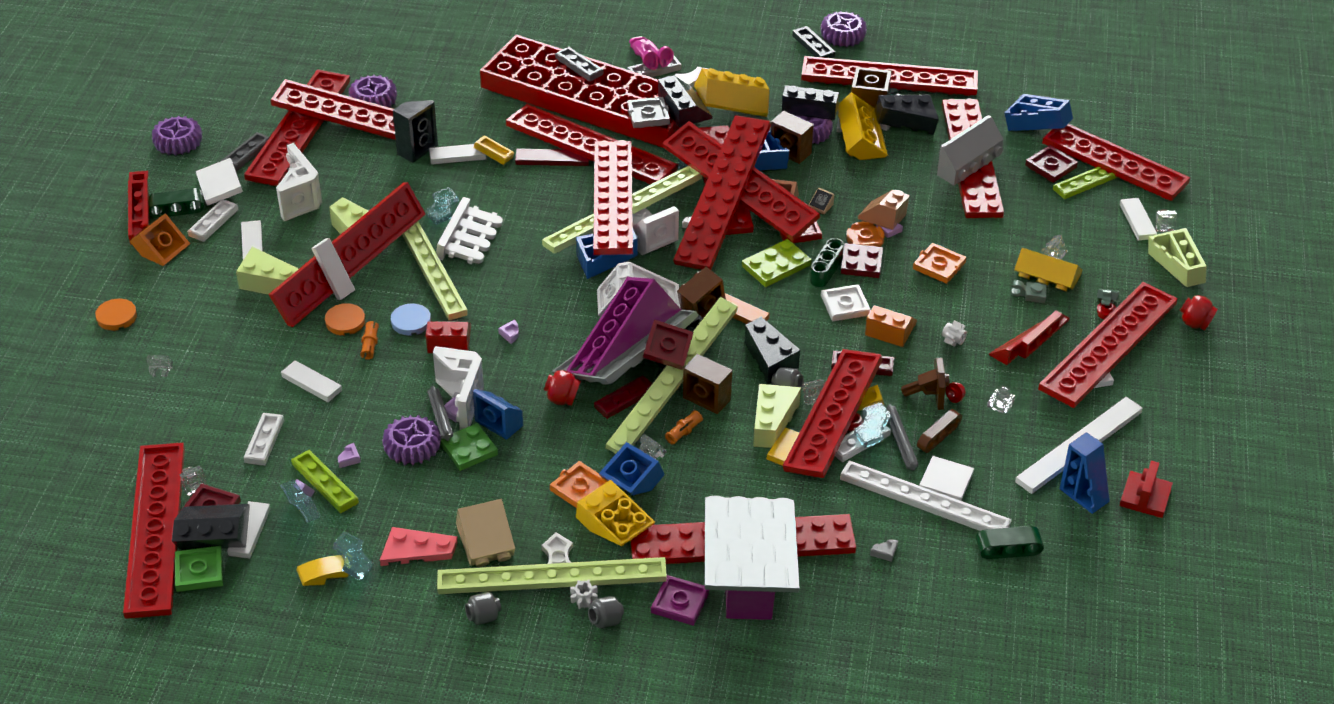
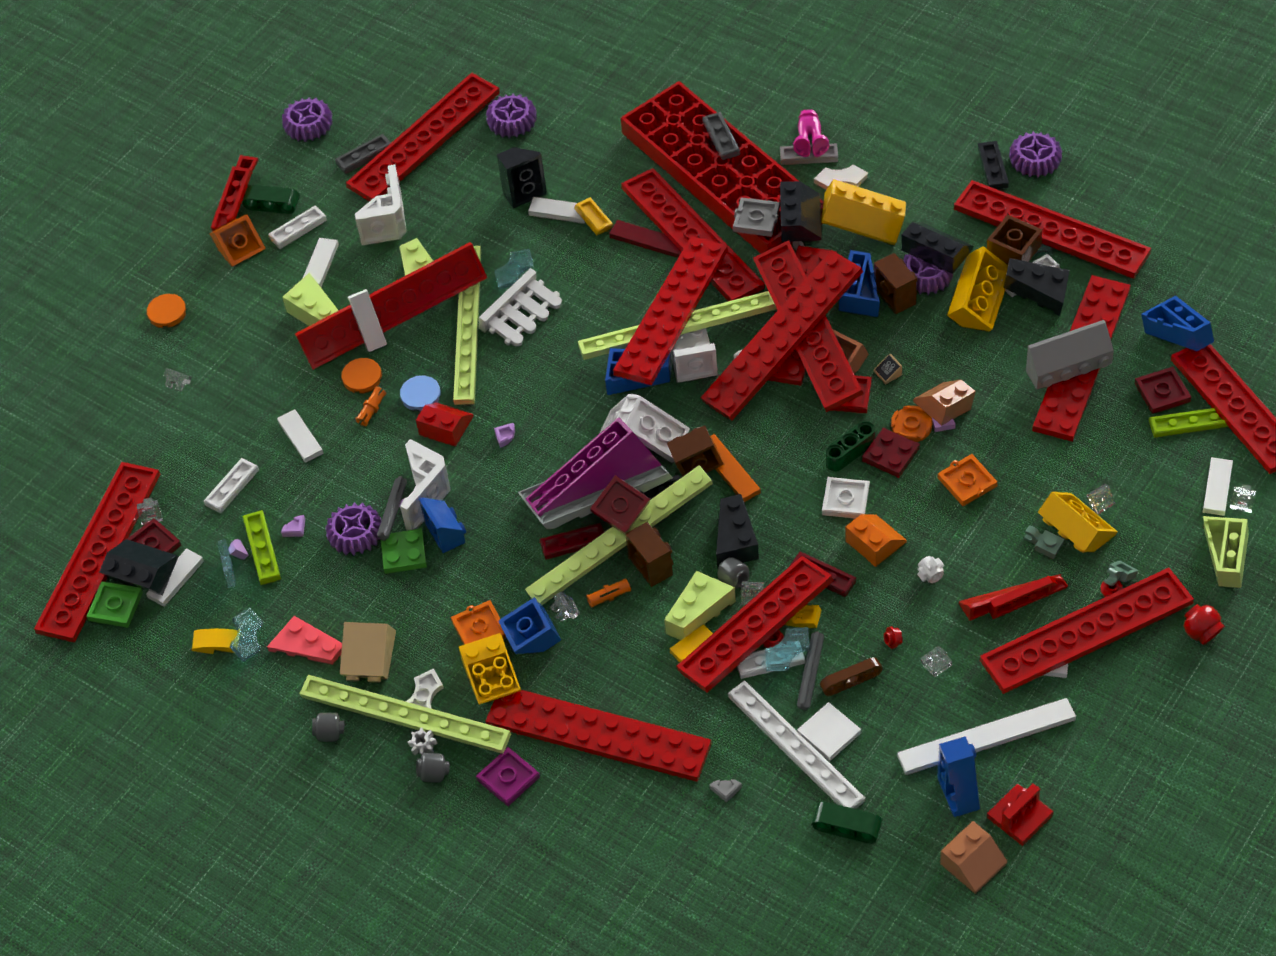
camera: 30 degrees right, 10 degrees up
(219, 181) = (319, 185): white tile -> none
(335, 108) = (460, 124): red plate -> none
(562, 387) = (513, 516): red piece -> none
(750, 552) = (582, 750): piece -> none
(776, 263) = (802, 430): lime plate -> none
(930, 383) = (871, 621): reddish brown piece -> none
(1132, 536) = (973, 857): none -> nougat slope

